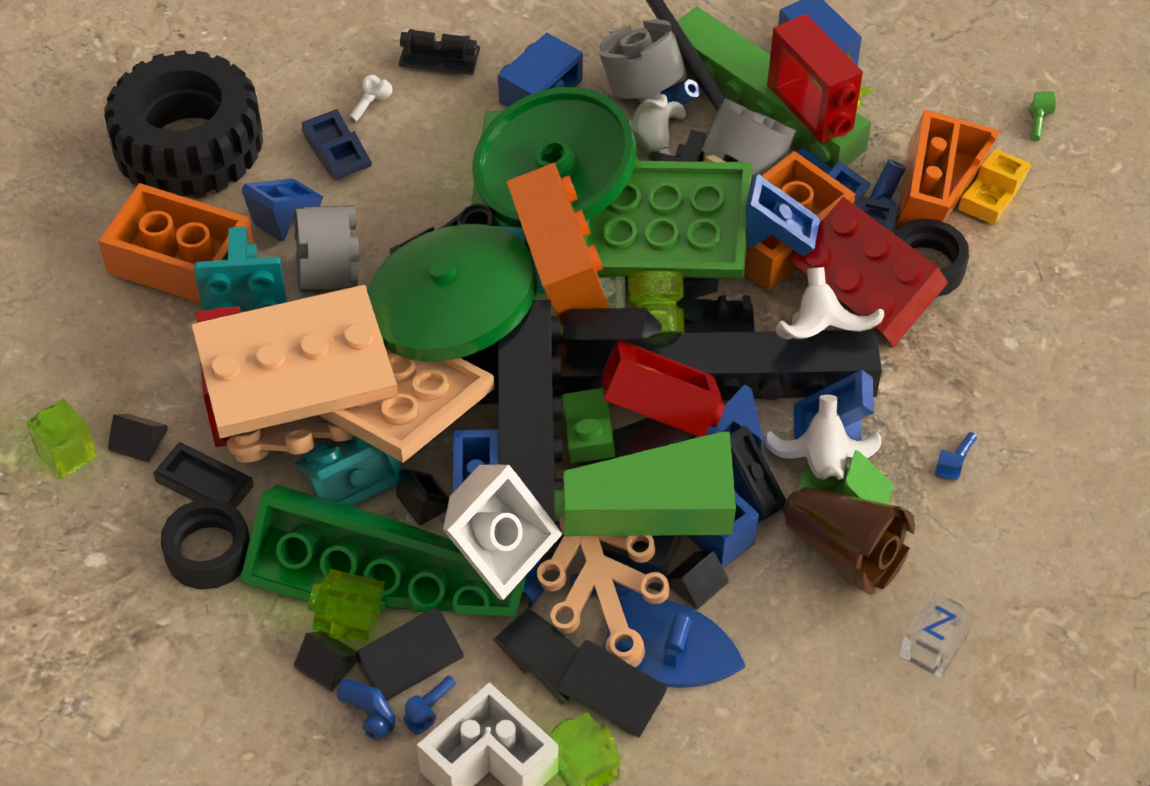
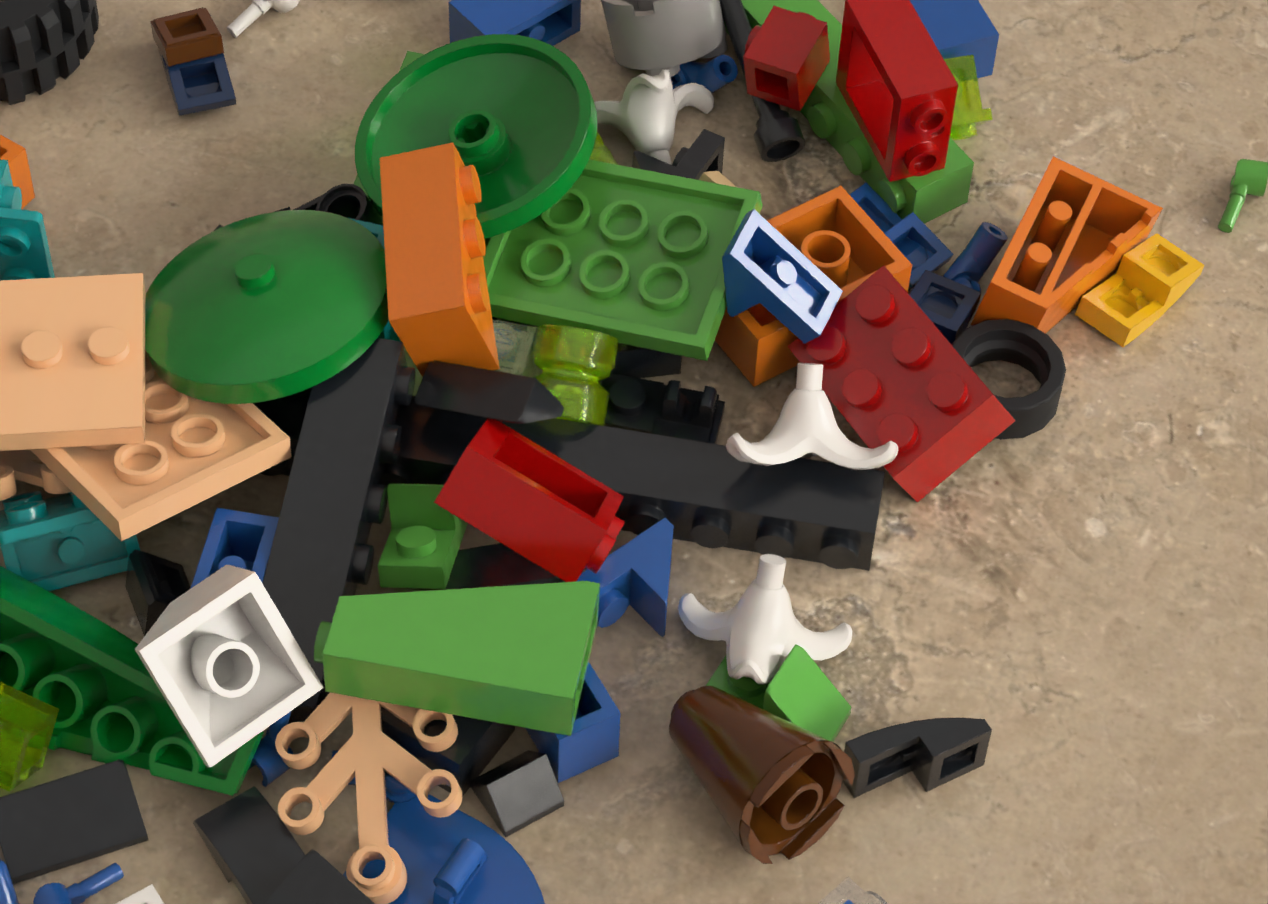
camera: 10 degrees right, 0 degrees up
(274, 204) = (81, 131): blue slope -> none
(326, 247) = (125, 210): light grey brick -> none
(328, 126) = (187, 36): none -> reddish brown tile
(733, 73) = (786, 57): none -> red brick
(747, 137) = (779, 155): light grey brick -> none
(753, 476) = (634, 654): black slope -> none
(853, 403) = (811, 575): blue slope -> none
(951, 463) = (946, 693): blue hand -> none
(951, 502) = (930, 748): none -> black slope

